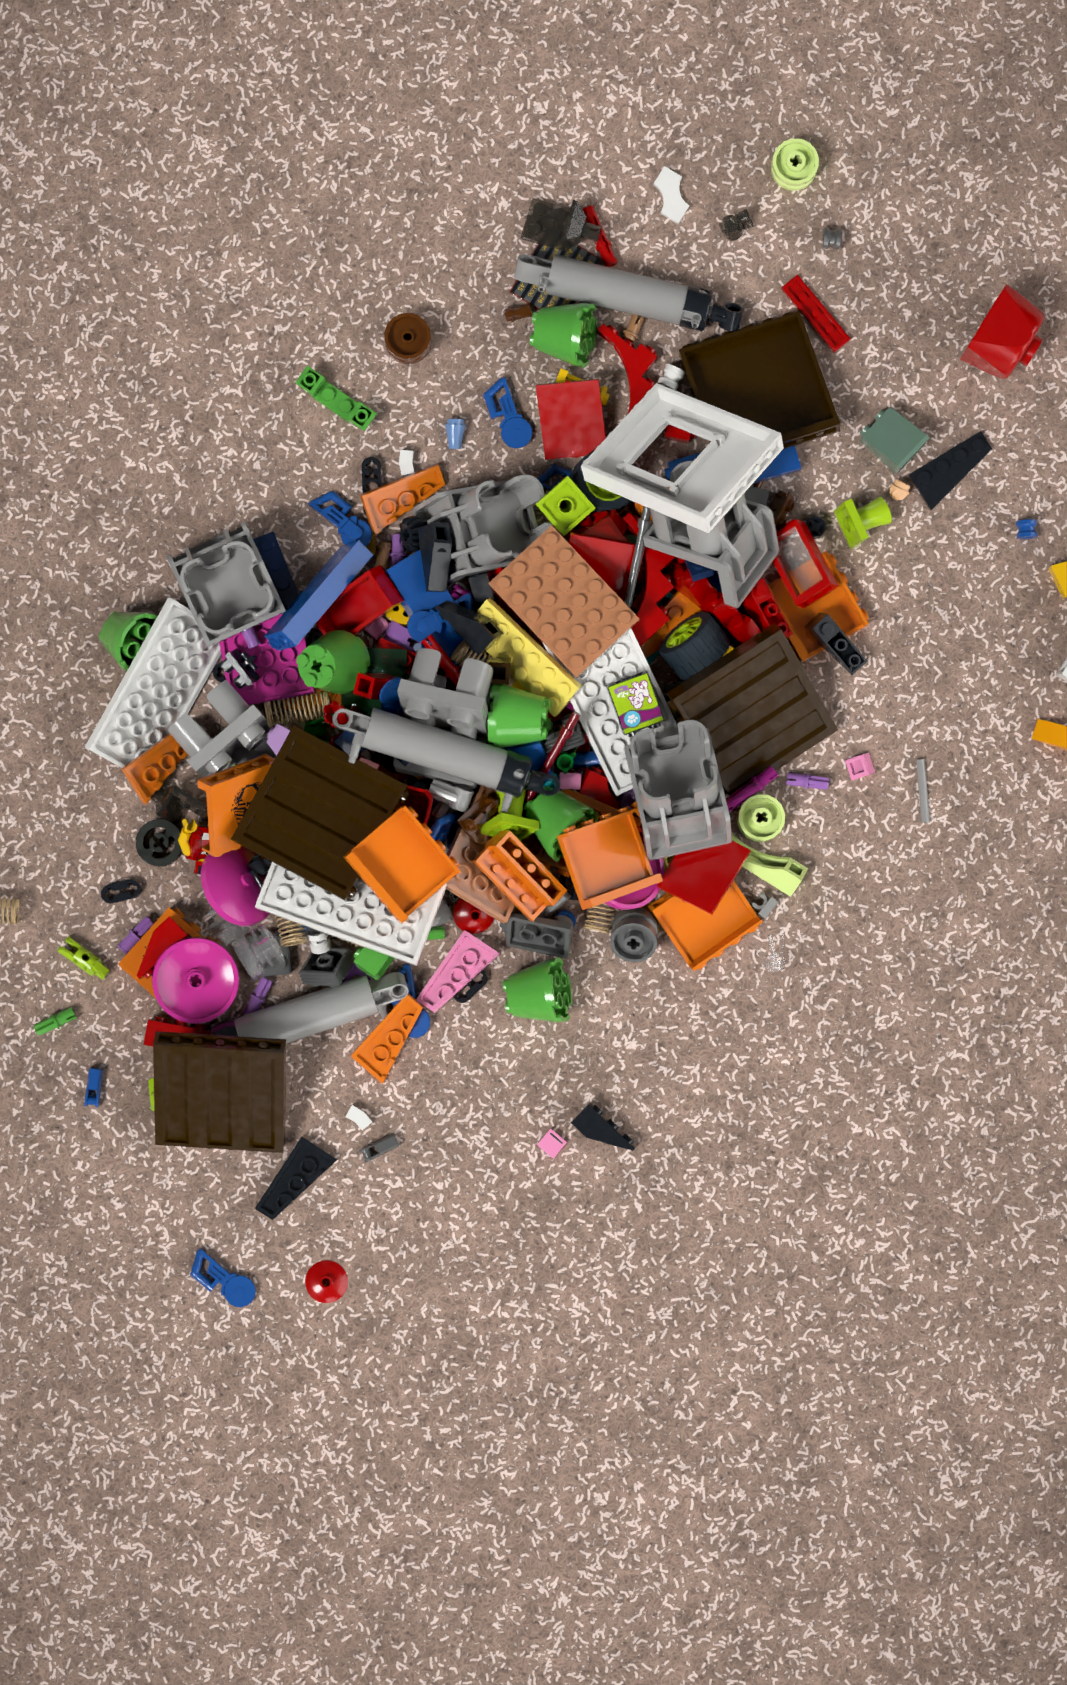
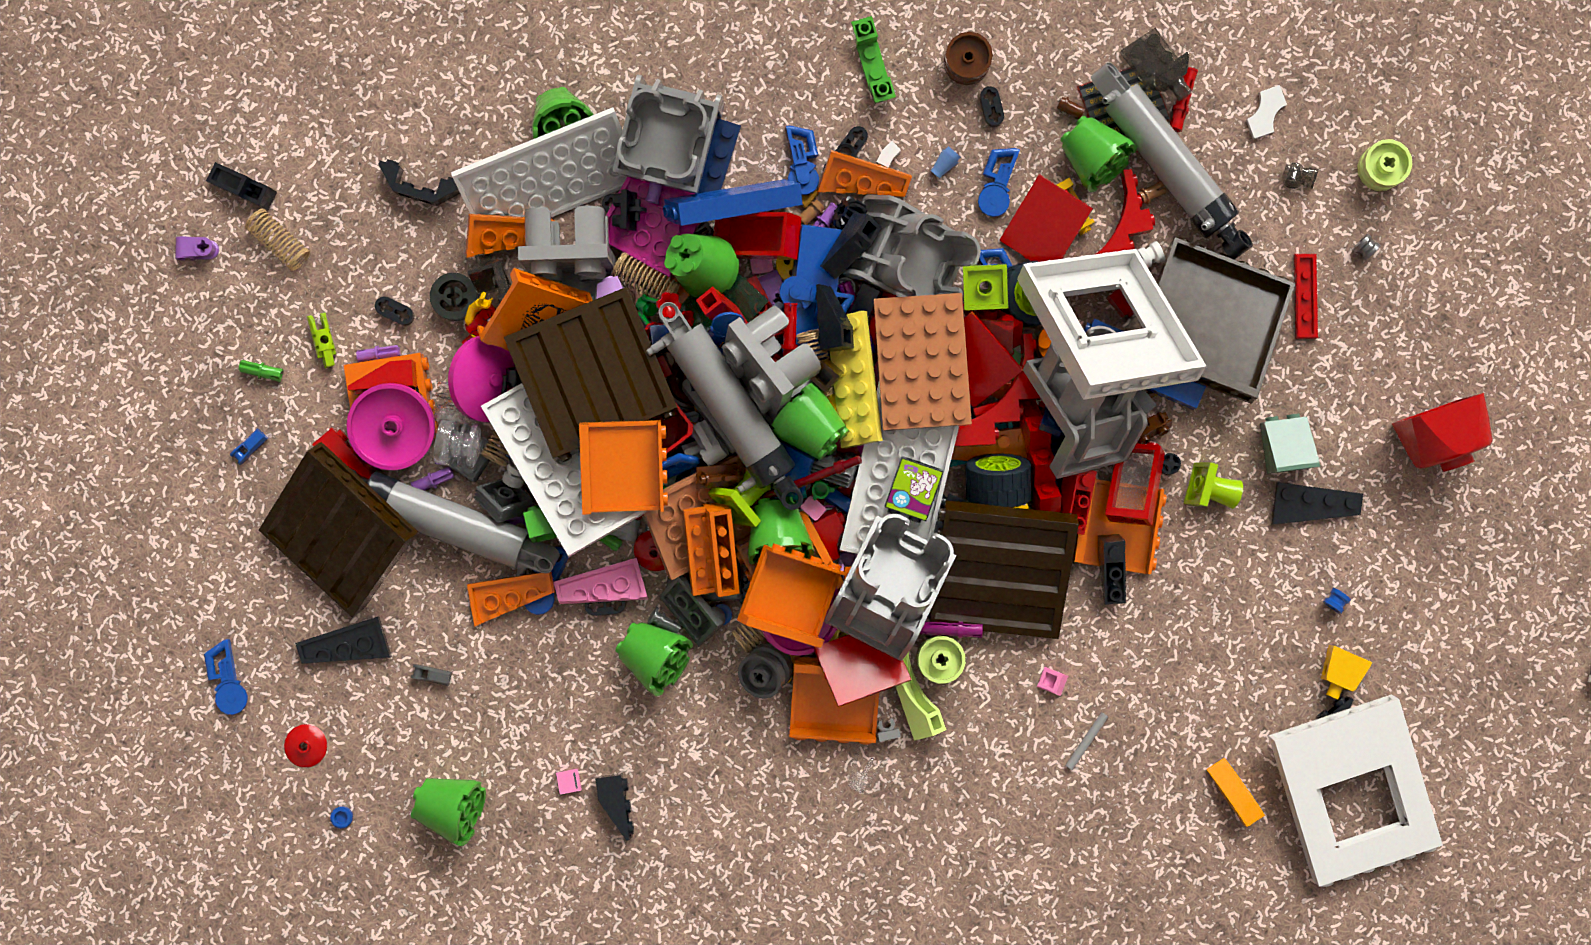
camera: 40 degrees right, 0 degrees up
(85, 765) = (393, 173): none -> black slope
(359, 1117) = (435, 637): white piece -> none
(399, 1313) = (341, 817): none -> blue tile
(453, 364) = (986, 107): none -> black beam
(476, 1235) = (449, 807): none -> bright green cone
(524, 962) = (663, 621): none -> dark grey pin
(643, 524) = (1035, 352): dark grey bar -> none
(808, 781) = (1001, 659): medium lavender axle -> none
(899, 490) = (1260, 488): light nougat plate -> none

